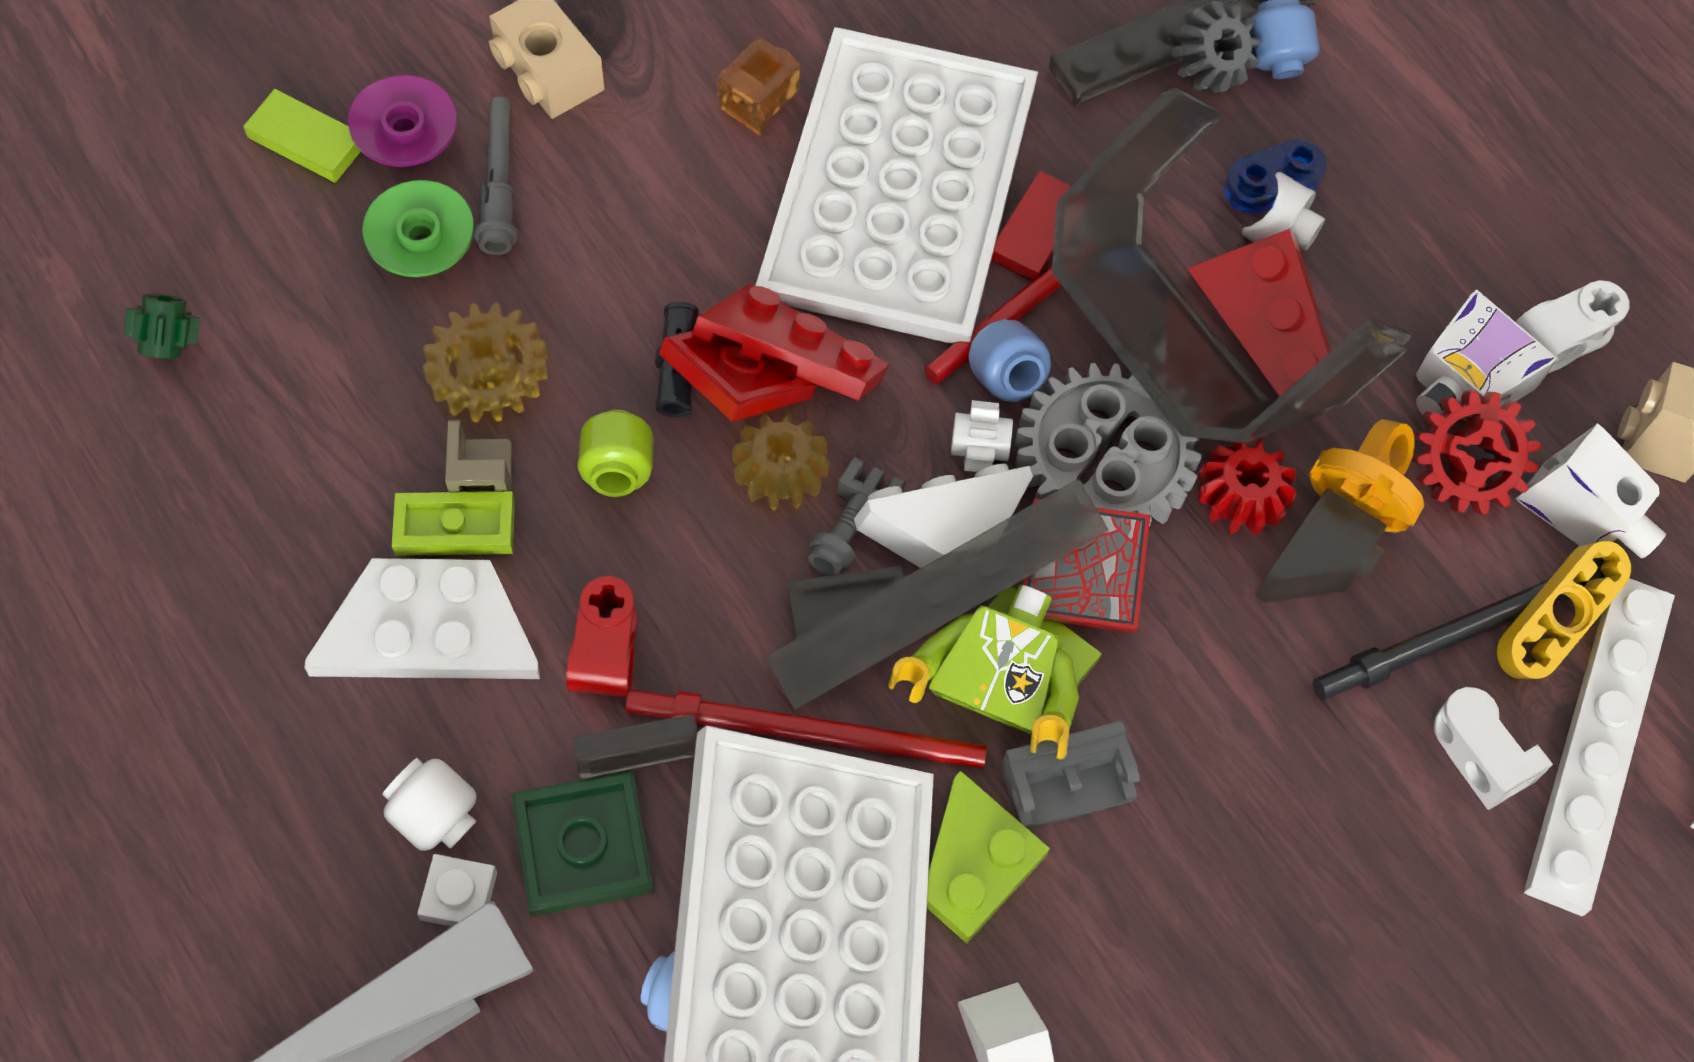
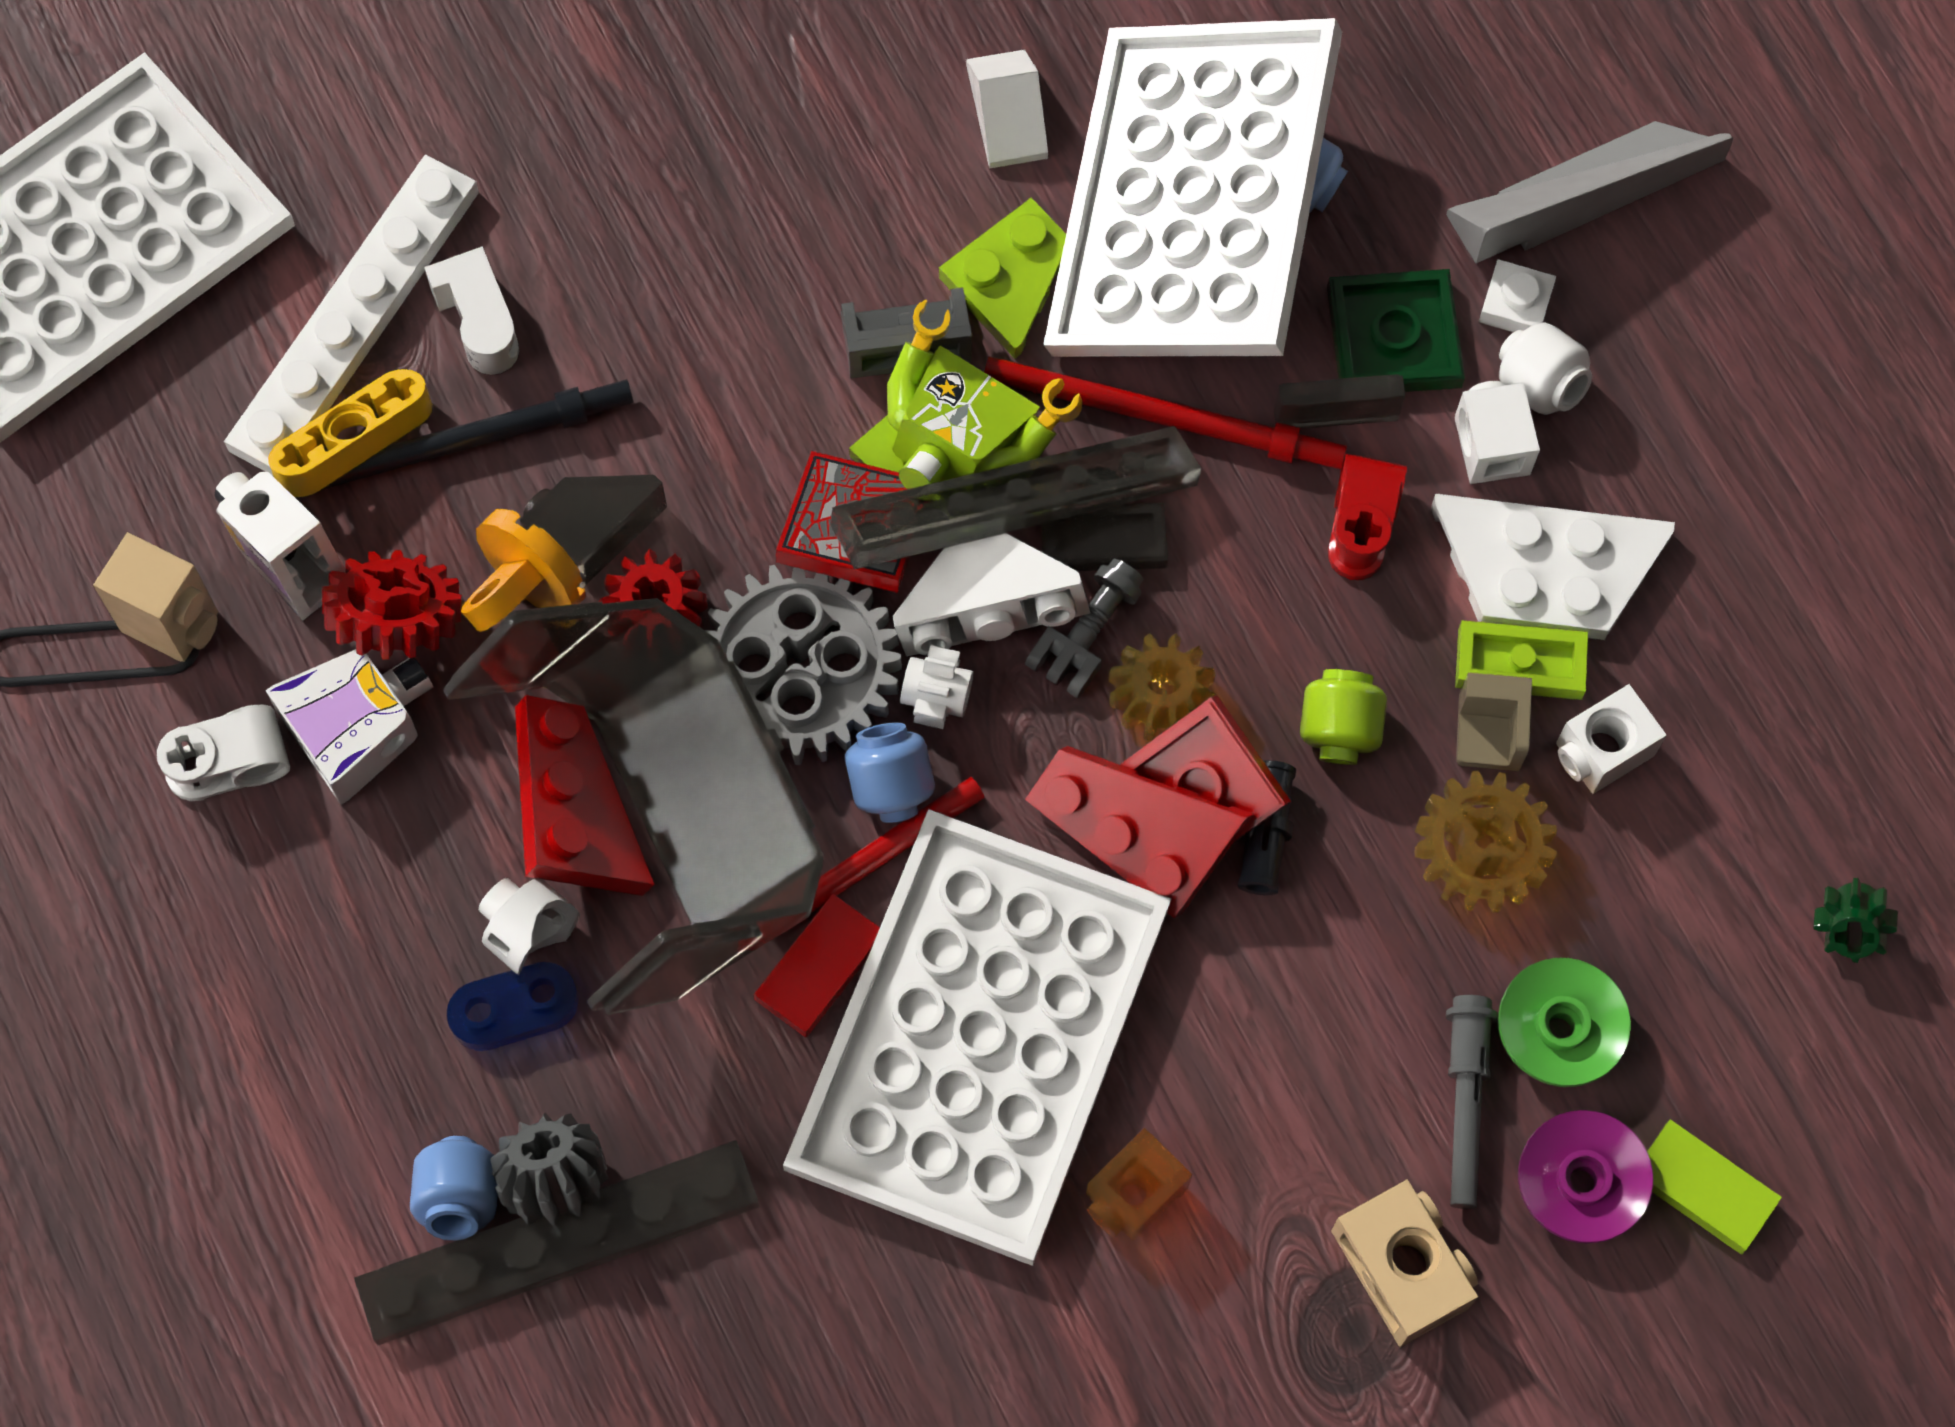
camera: 170 degrees left, 5 degrees up
(375, 478) = (1625, 720): none -> white brick
(478, 734) = (1496, 432): none -> white brick

